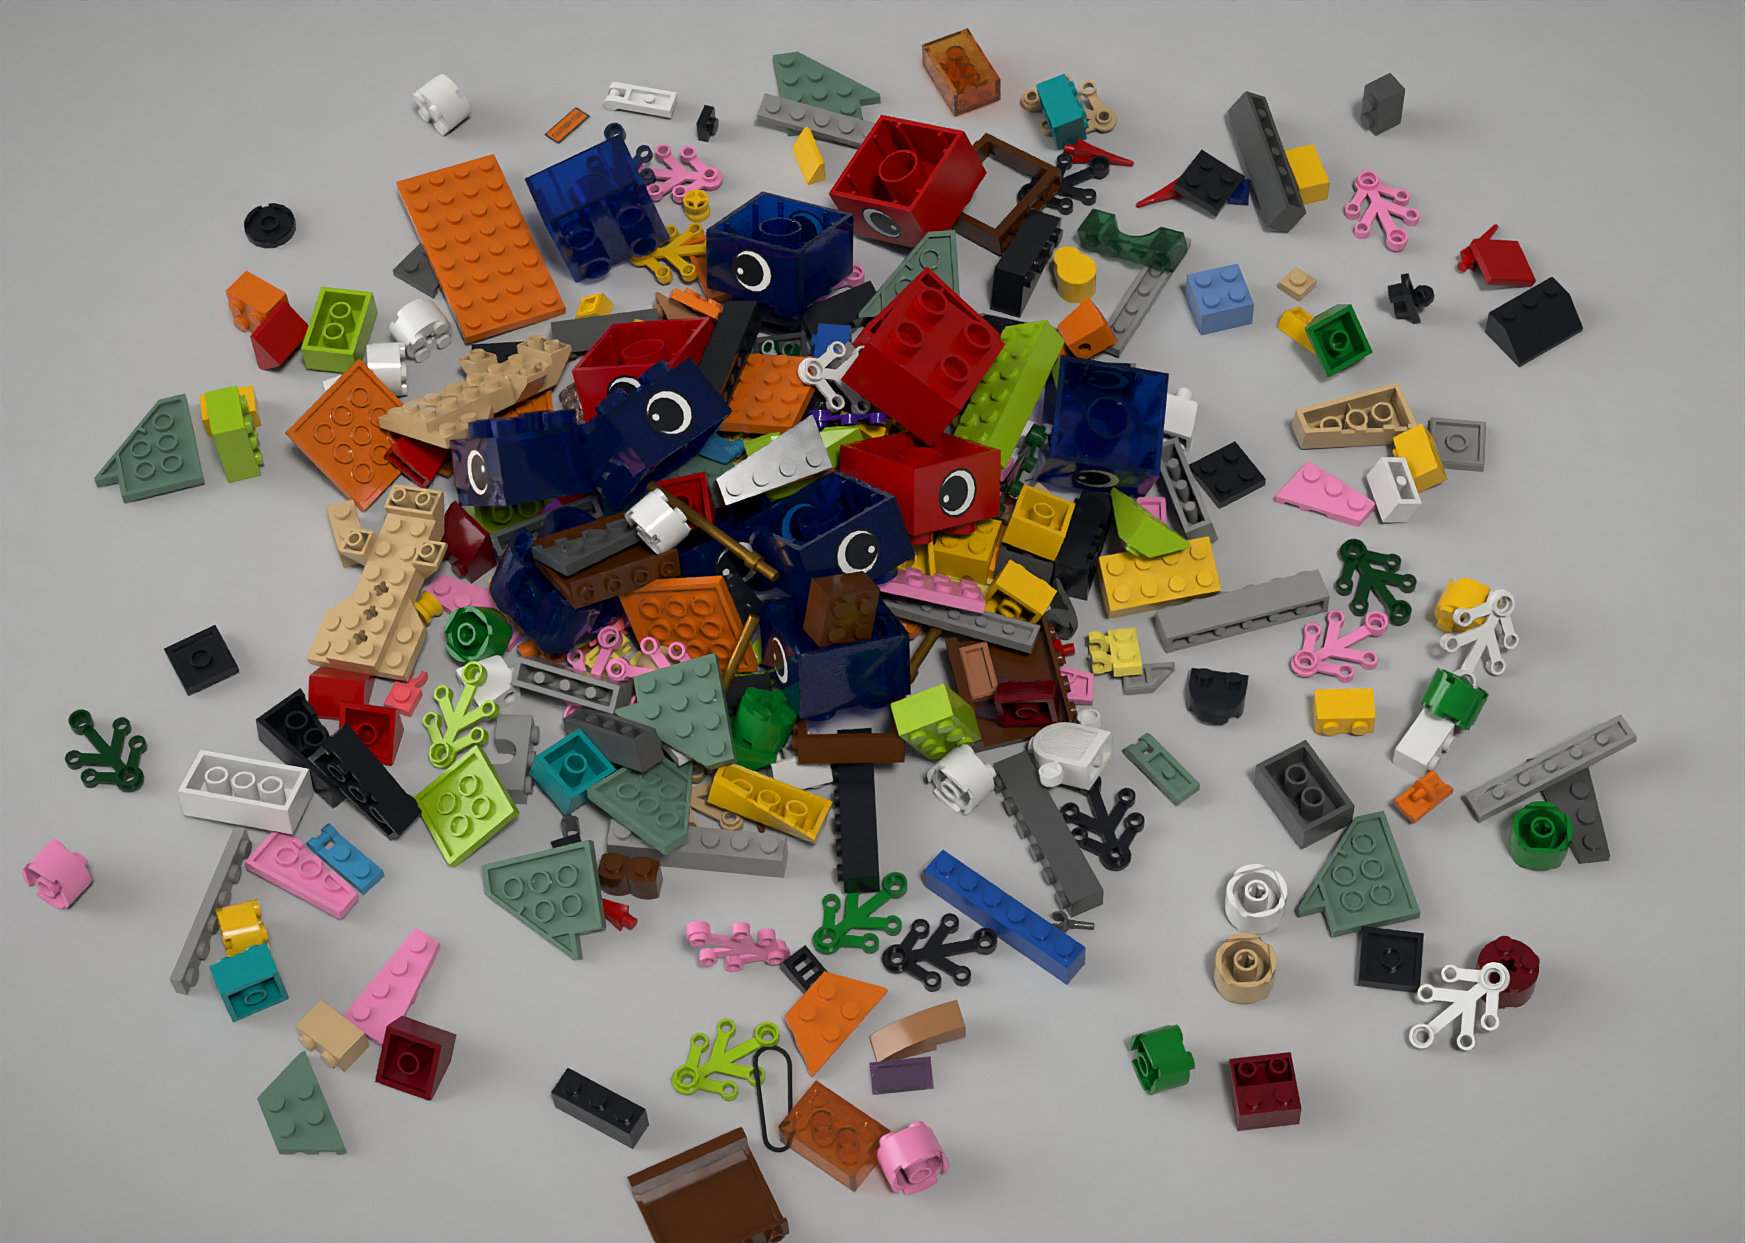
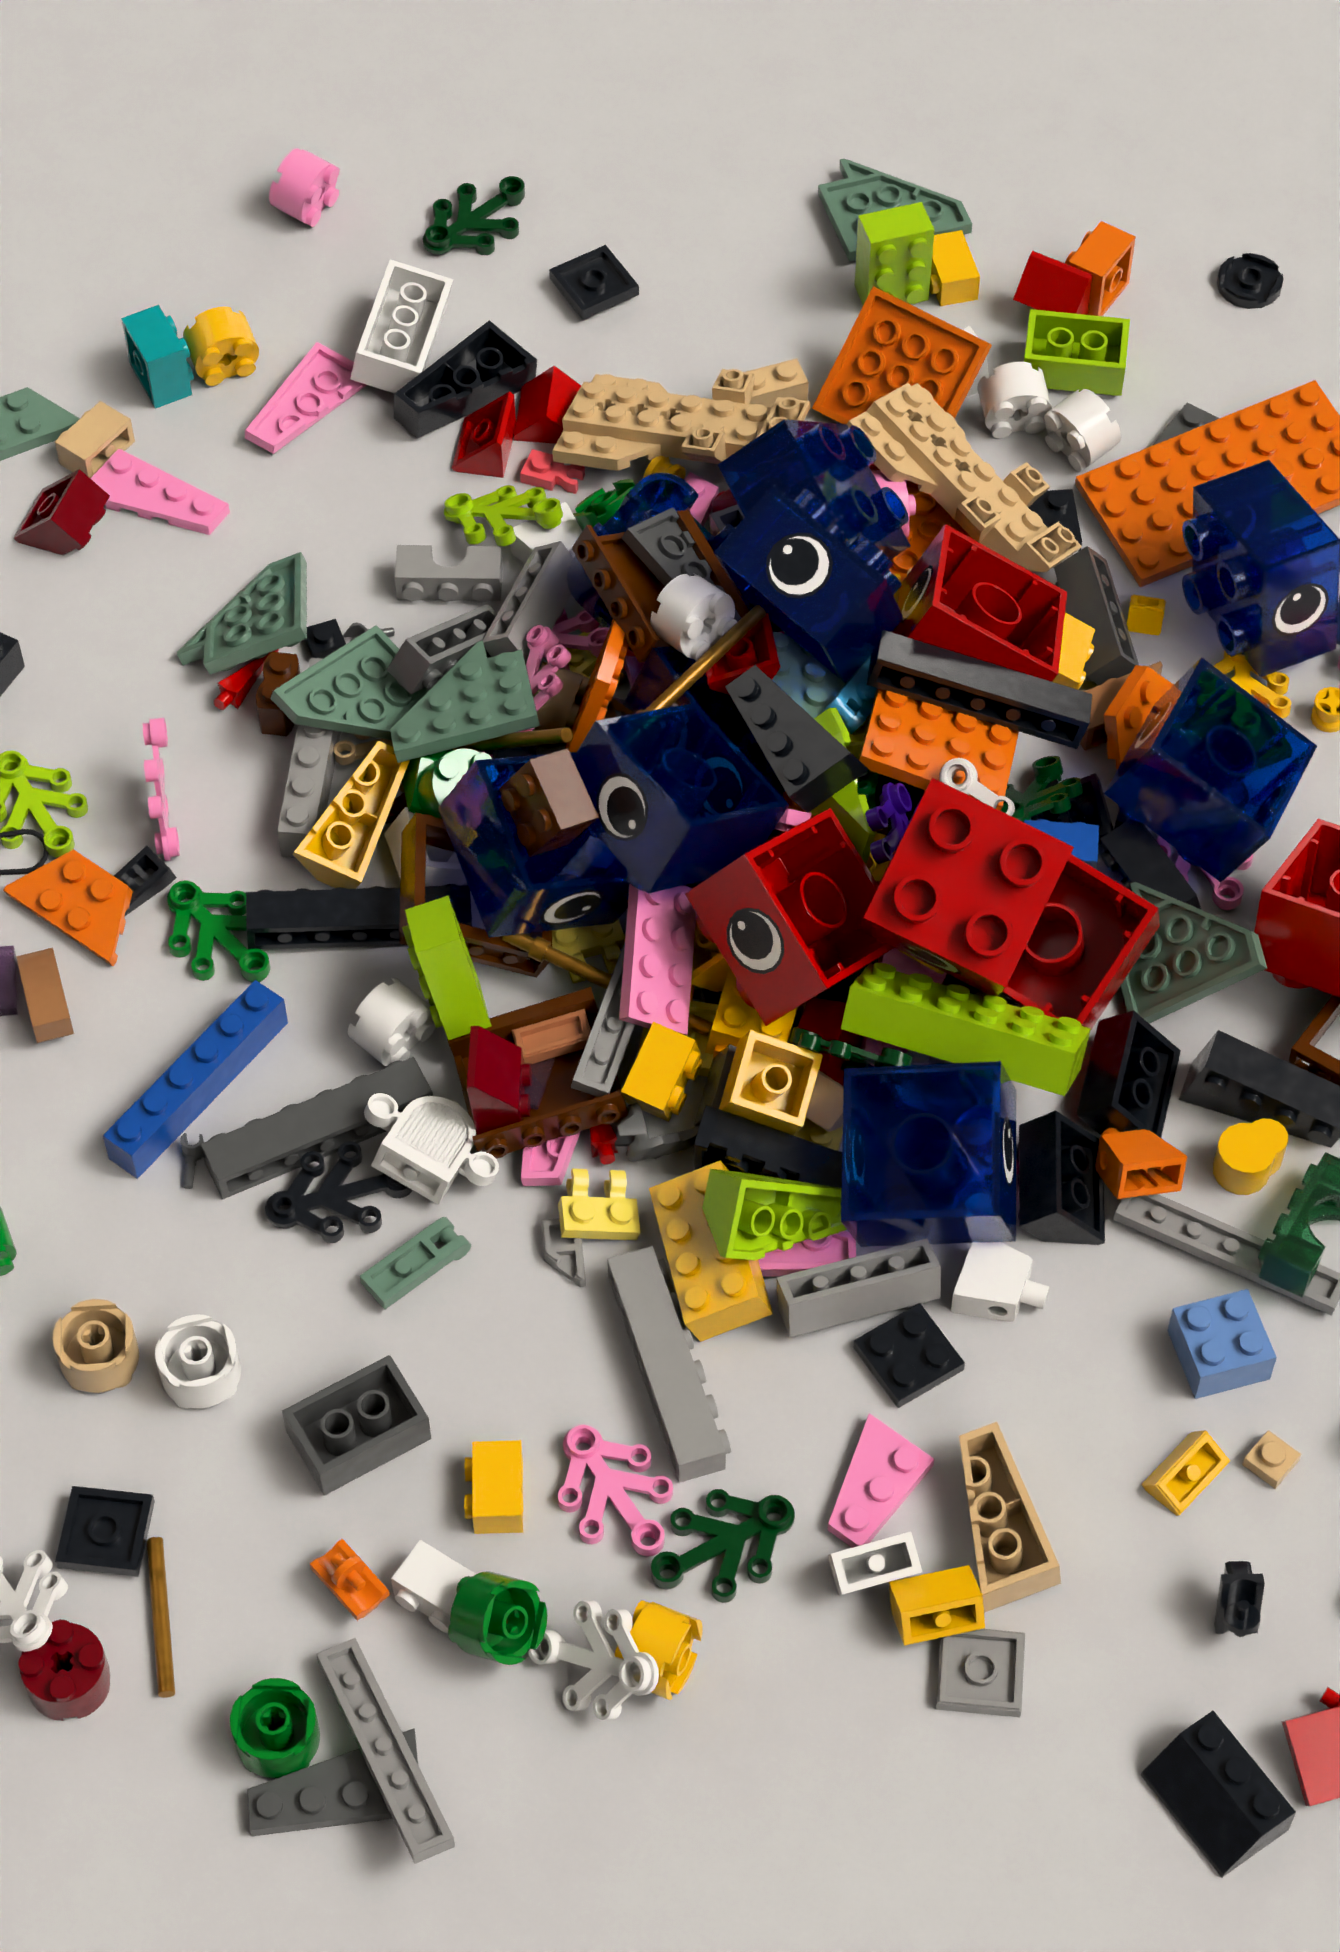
camera: 85 degrees right, 0 degrees up
(206, 923) = (270, 323): light grey plate -> none
(346, 859) = (325, 436): dark azure plate -> none
(365, 782) = (395, 420): black wedge -> none
(466, 806) = (376, 527): lime plate -> none
(570, 769) = (412, 608): teal brick -> none
(935, 952) = (158, 1009): black plant -> none
(1216, 695) = (530, 1330): black slope -> none
(1337, 338) = (1140, 1486): green slope -> none
(1363, 881) = (229, 1503): sand green wing -> none
(1455, 922) = (160, 1617): none -> pearl gold bar

